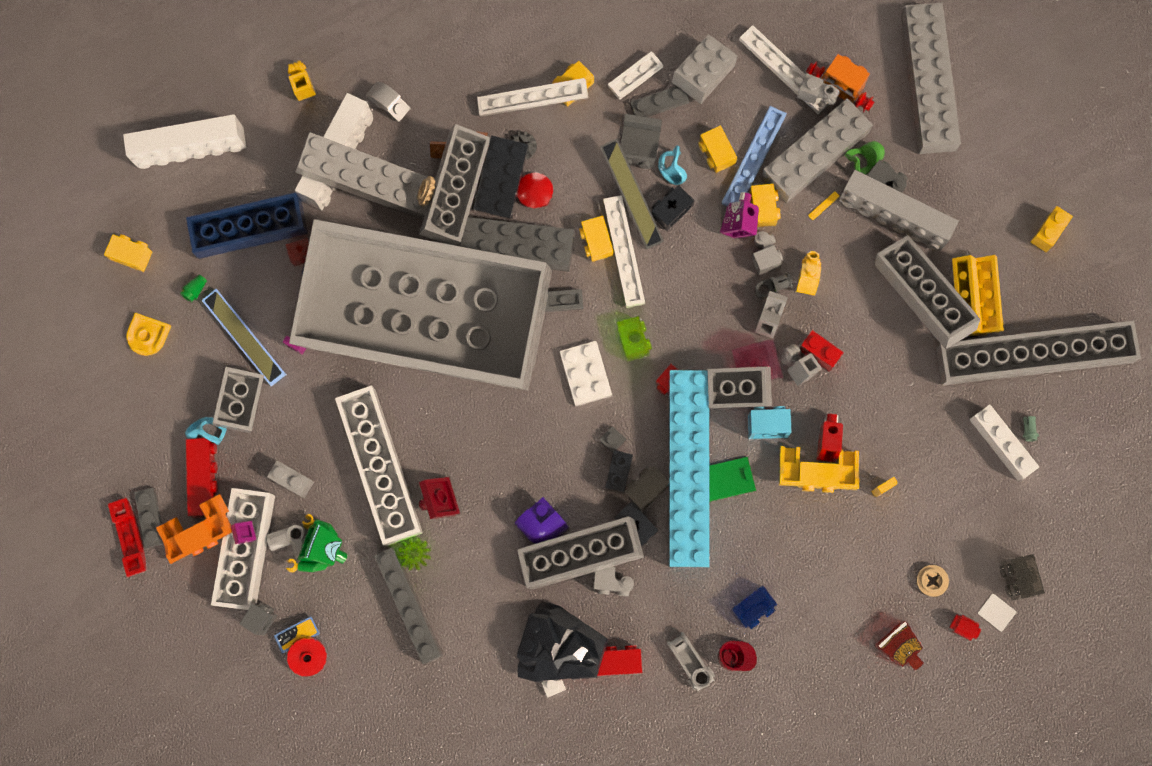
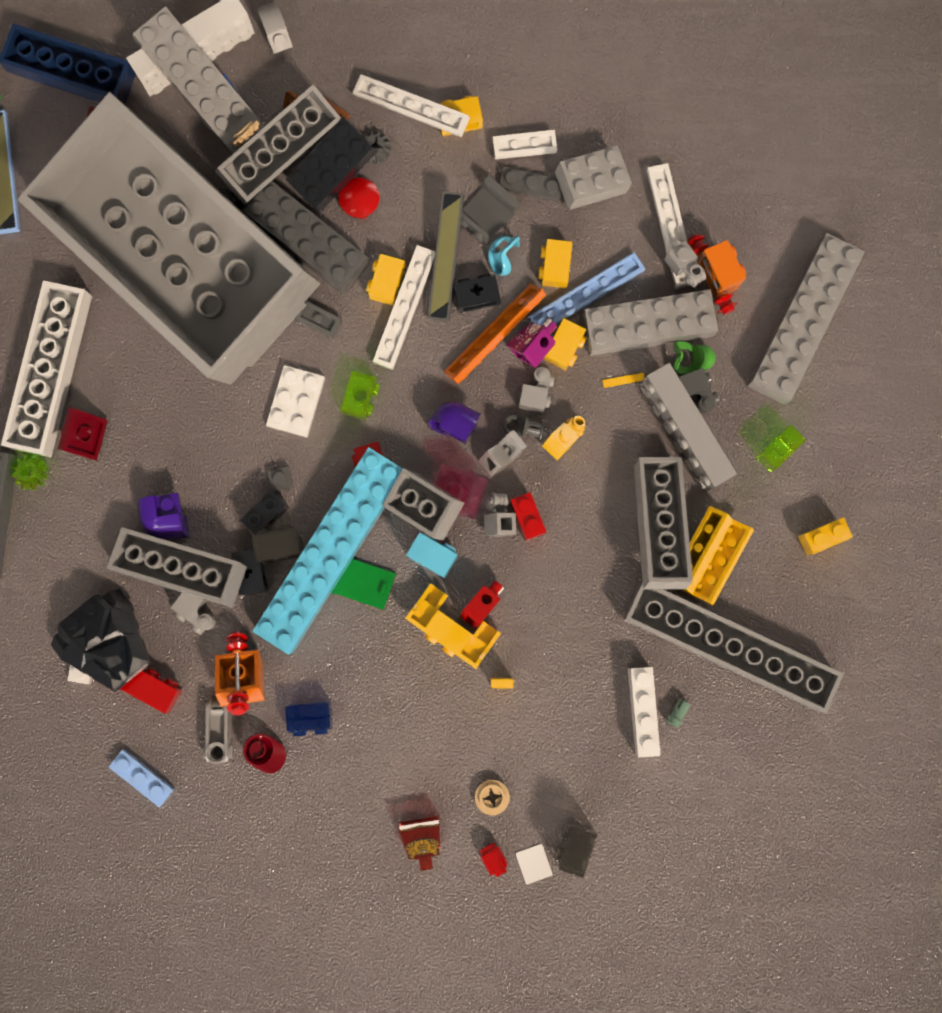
camera: 25 degrees right, 5 degrees up
(653, 737) = (141, 778): none -> light blue plate
(681, 606) = (239, 675): none -> orange brick
(705, 229) = (494, 333): none -> orange plate
(719, 312) = (454, 420): none -> dark purple brick
(975, 184) = (780, 448): none -> clear neon green brick

